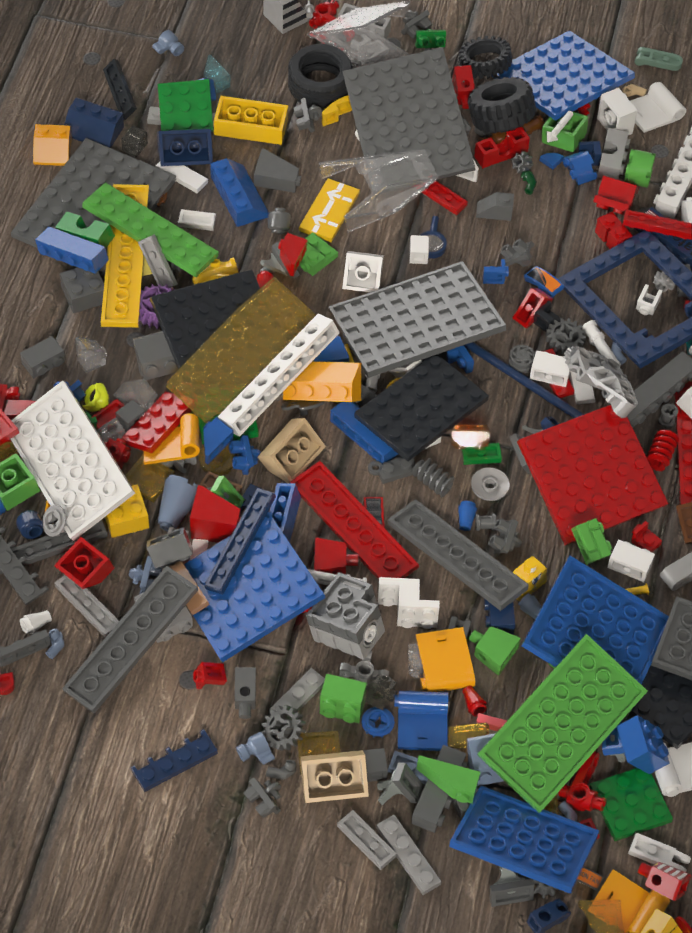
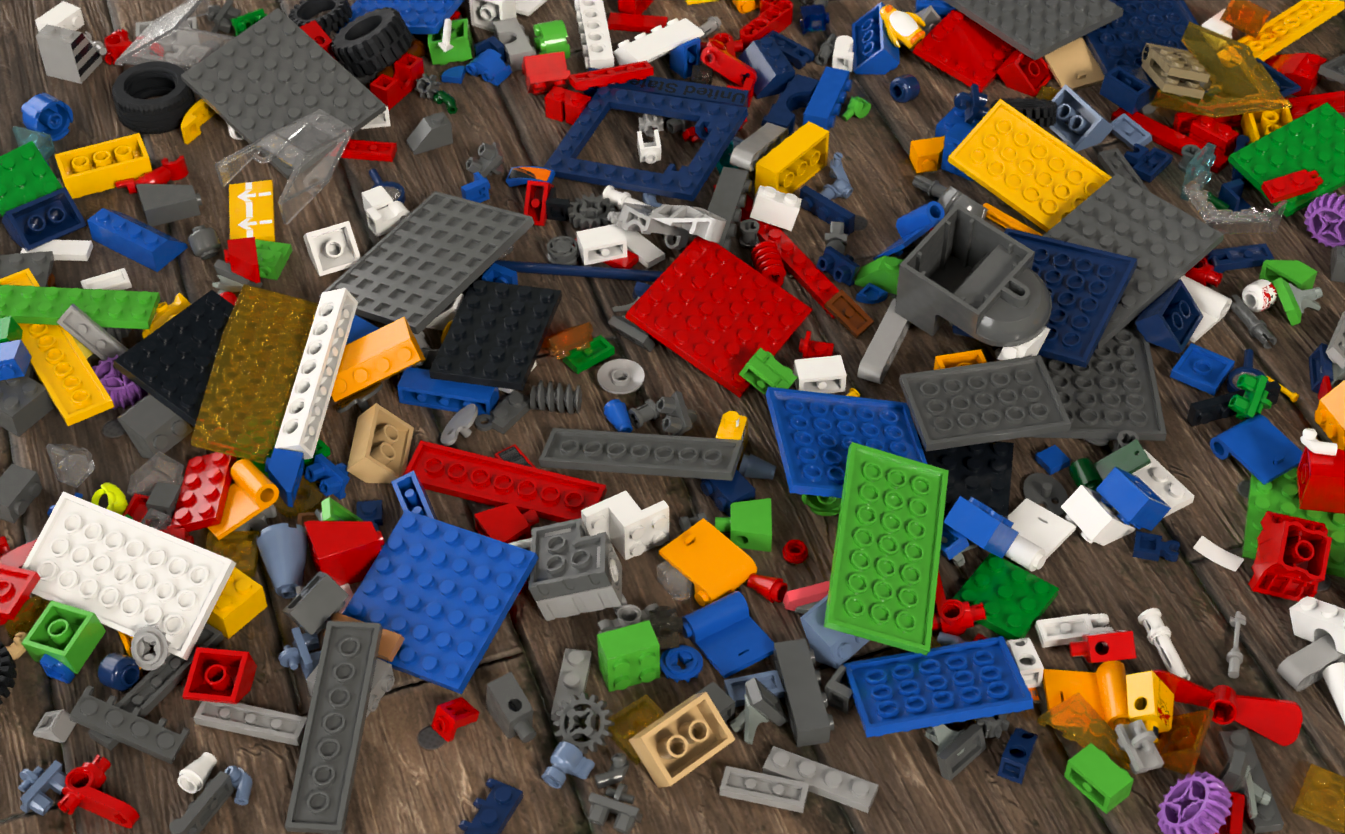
camera: 30 degrees left, 10 degrees down
(237, 57) = (47, 115): none -> blue brick
(240, 541) = (395, 555): dark blue tile -> none
(283, 147) = (162, 175): none -> red piece
(309, 113) = (163, 139): dark grey hips -> none
(356, 461) = (459, 423): none -> light grey piece
(418, 265) = (387, 218): none -> white leg
(454, 780) = (814, 668): bright green slope -> none
(458, 734) = (787, 622): clear yellow tile -> none
(515, 681) = (795, 551): none -> red plate
(603, 857) = (1027, 661): none -> white leg

